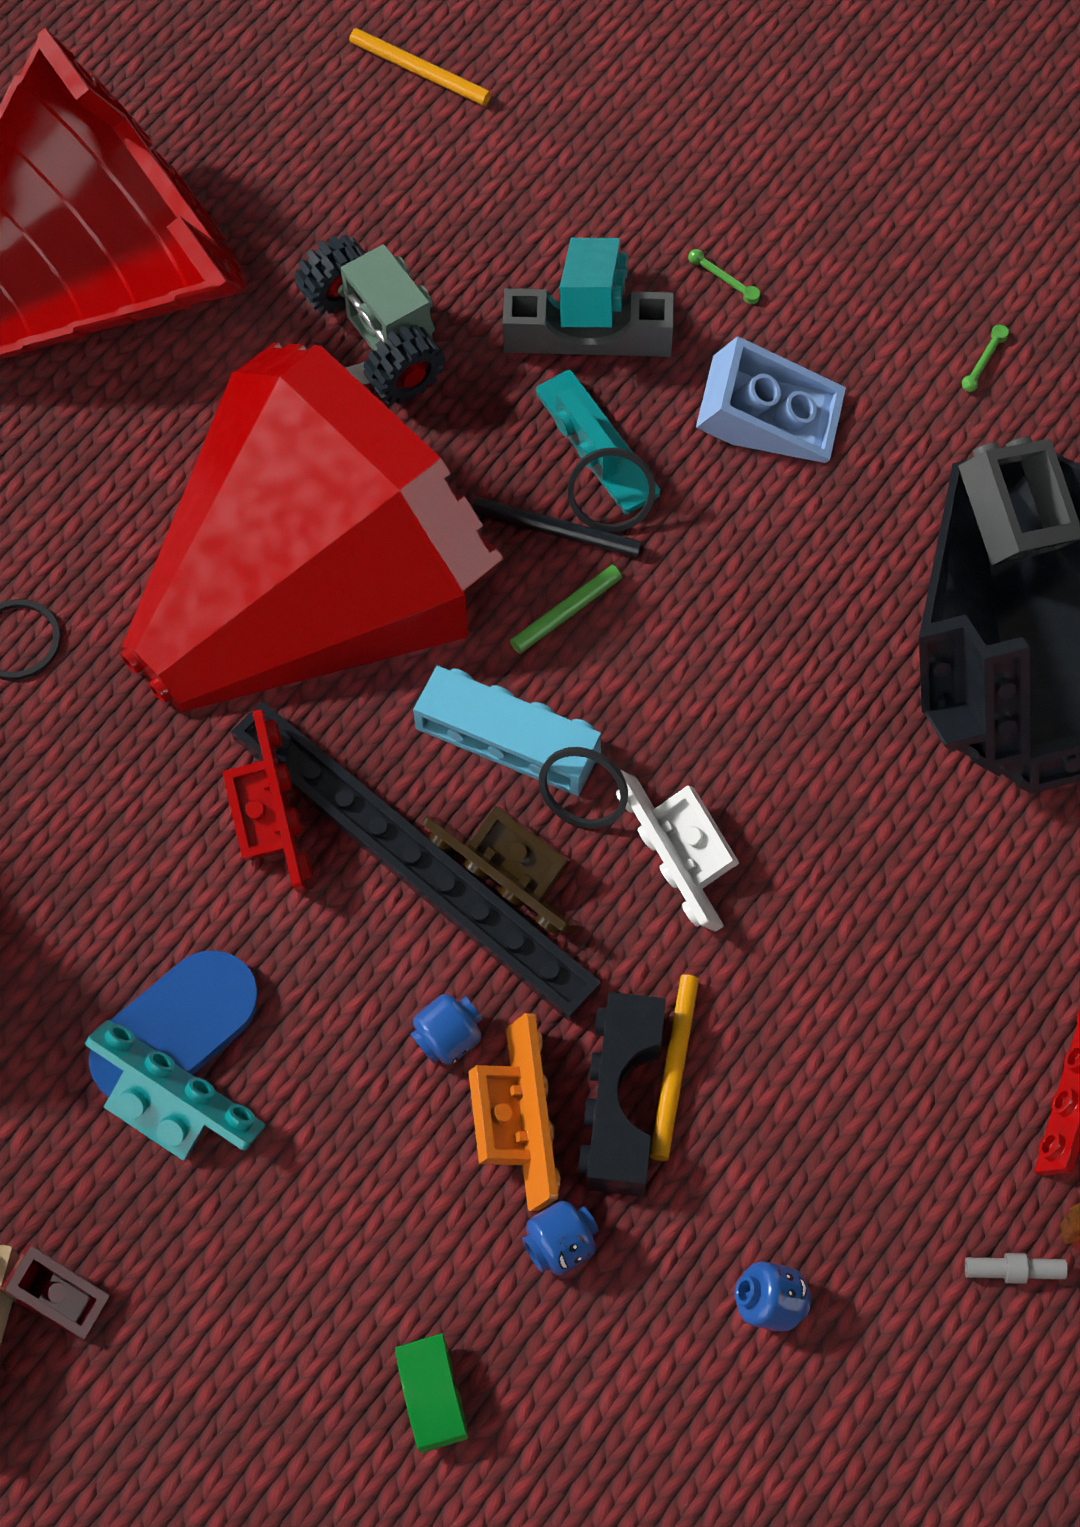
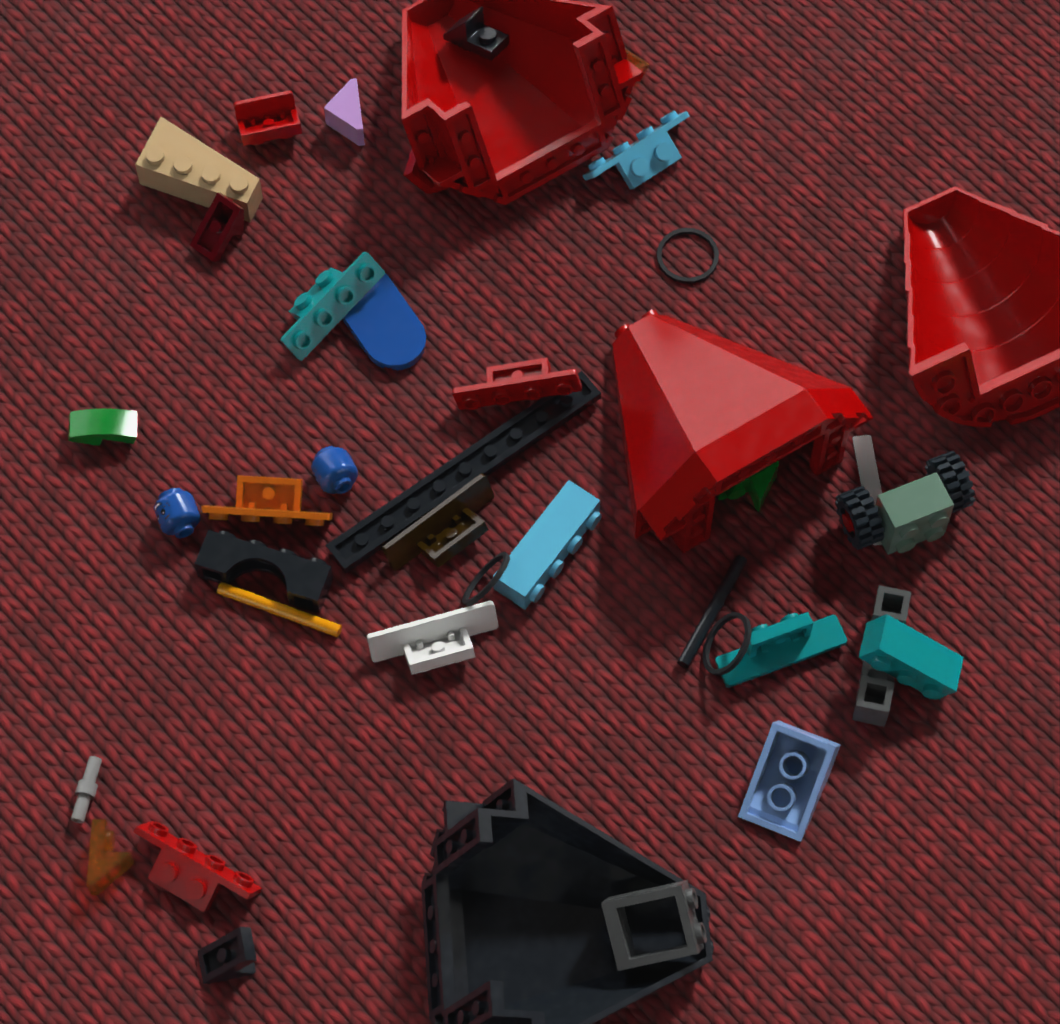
camera: 100 degrees right, 0 degrees up
(565, 609) = (642, 605): bright green bar -> none
(750, 294) = (904, 792): bright green hinge -> none
(772, 1296) = (104, 628): blue head -> none
(998, 335) = (835, 976): bright green hinge -> none

